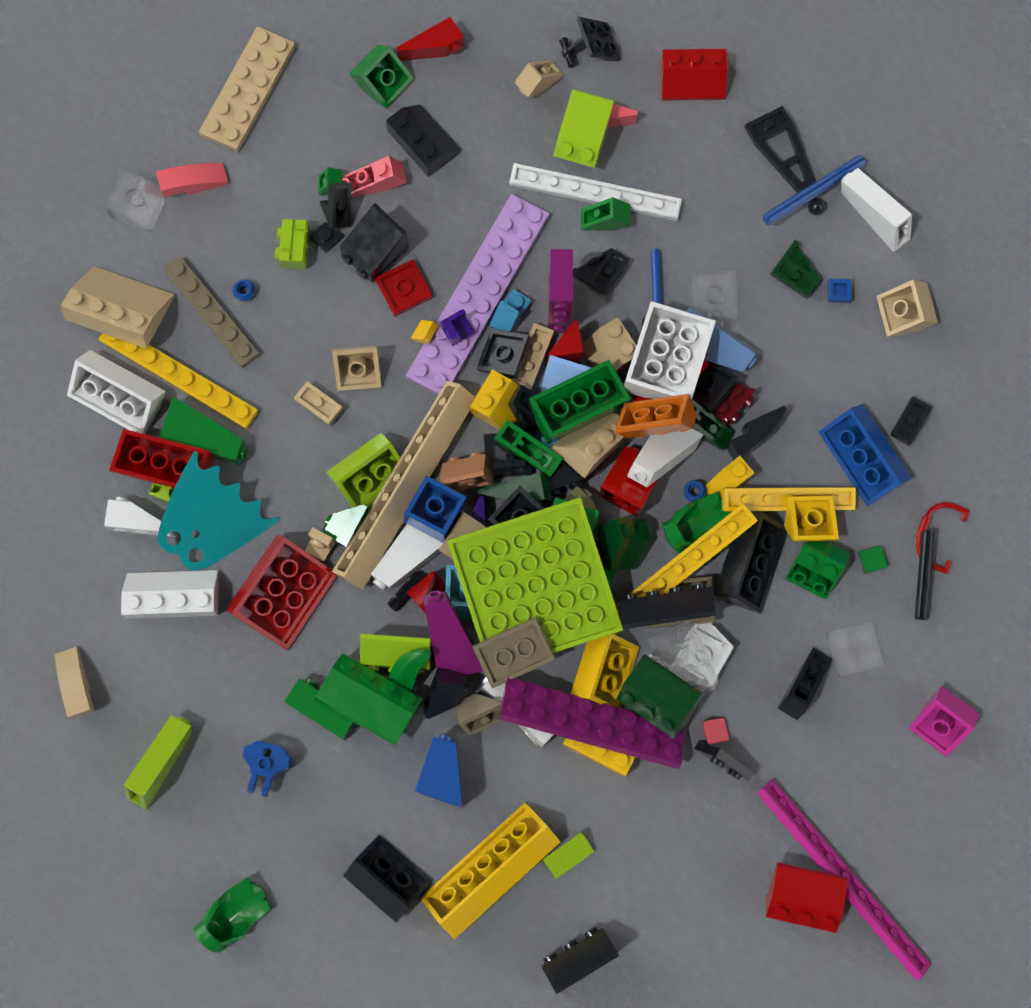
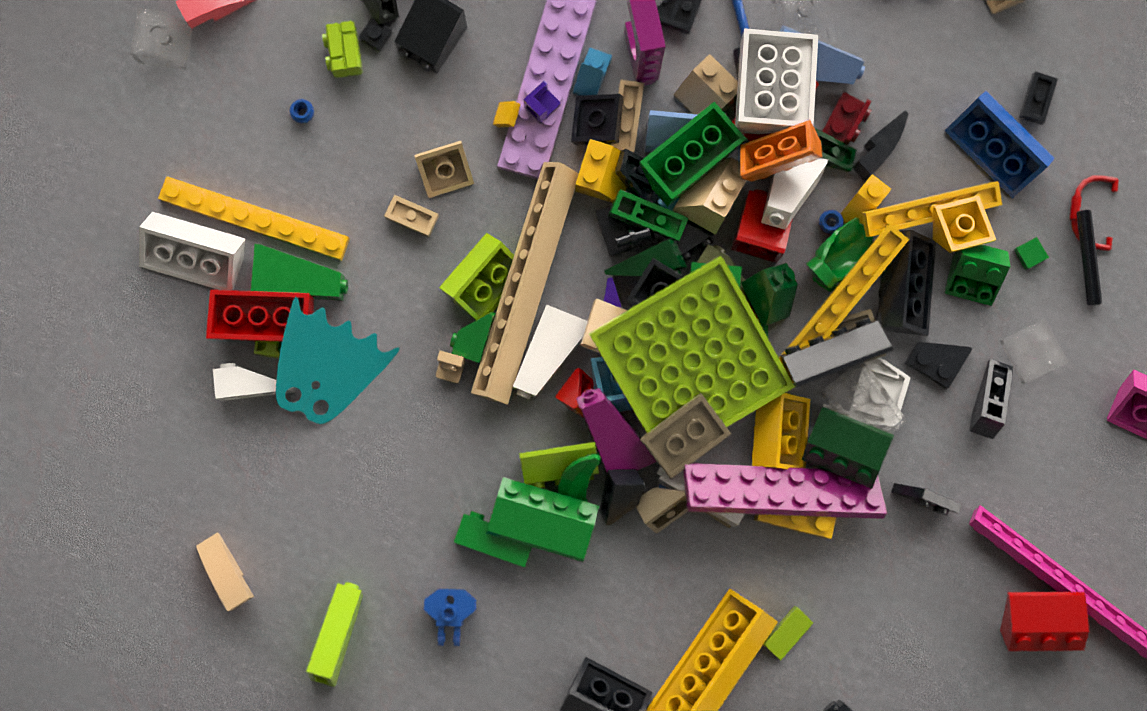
camera: 15 degrees left, 5 degrees up
(116, 306) = (169, 158): tan slope -> none
(170, 594) = (304, 454): white slope -> none
(211, 312) = (272, 142): dark tan plate -> none
(281, 592) = (421, 425): red slope -> none
(401, 595) = (549, 400): black axle -> none
(403, 288) = (472, 71): red tile -> none
(434, 509) = (565, 302): blue brick -> none
(441, 772) = (638, 580): blue slope -> none
(467, 472) = (589, 255): nougat slope -> none
(569, 345) = (667, 95): red slope -> none
(714, 386) = (830, 106): black plate -> none
(715, 731) = (909, 469): coral slope -> none
(764, 638) = (938, 361): none -> black wing

